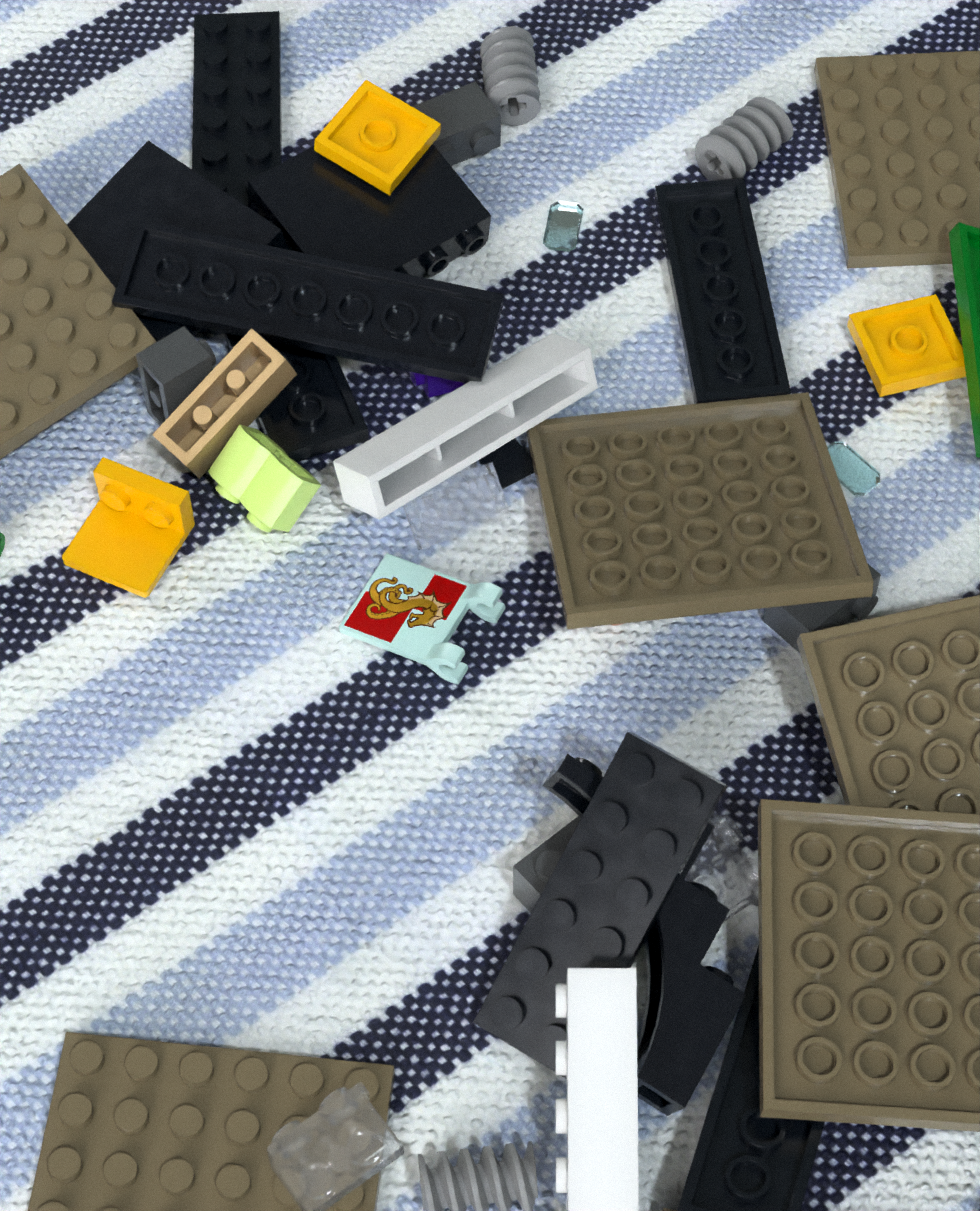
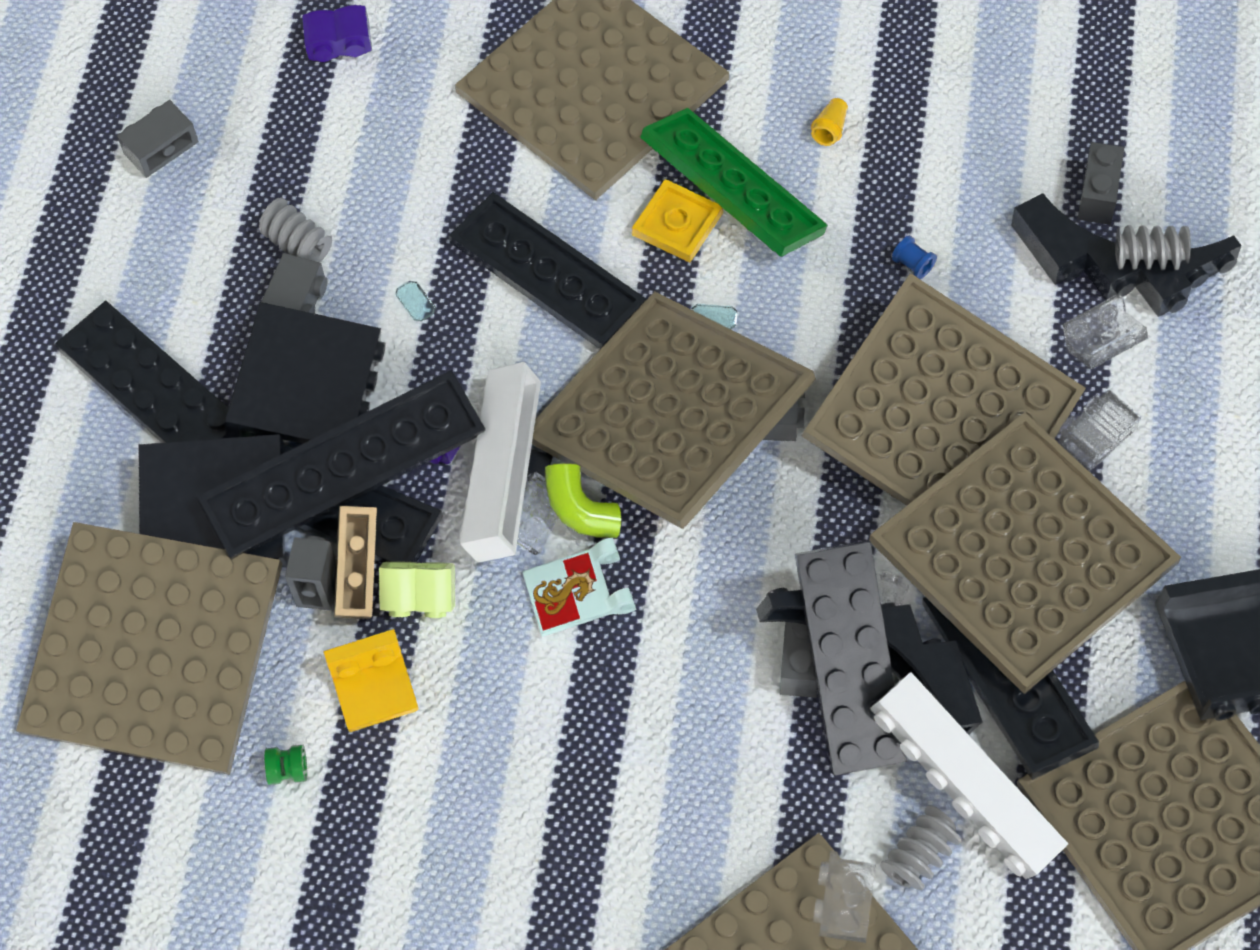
camera: 40 degrees left, 5 degrees up
(377, 137) = (276, 333): yellow plate -> none
(494, 531) = (575, 508): none -> lime cylinder
(743, 140) = (469, 169): light grey piece -> none

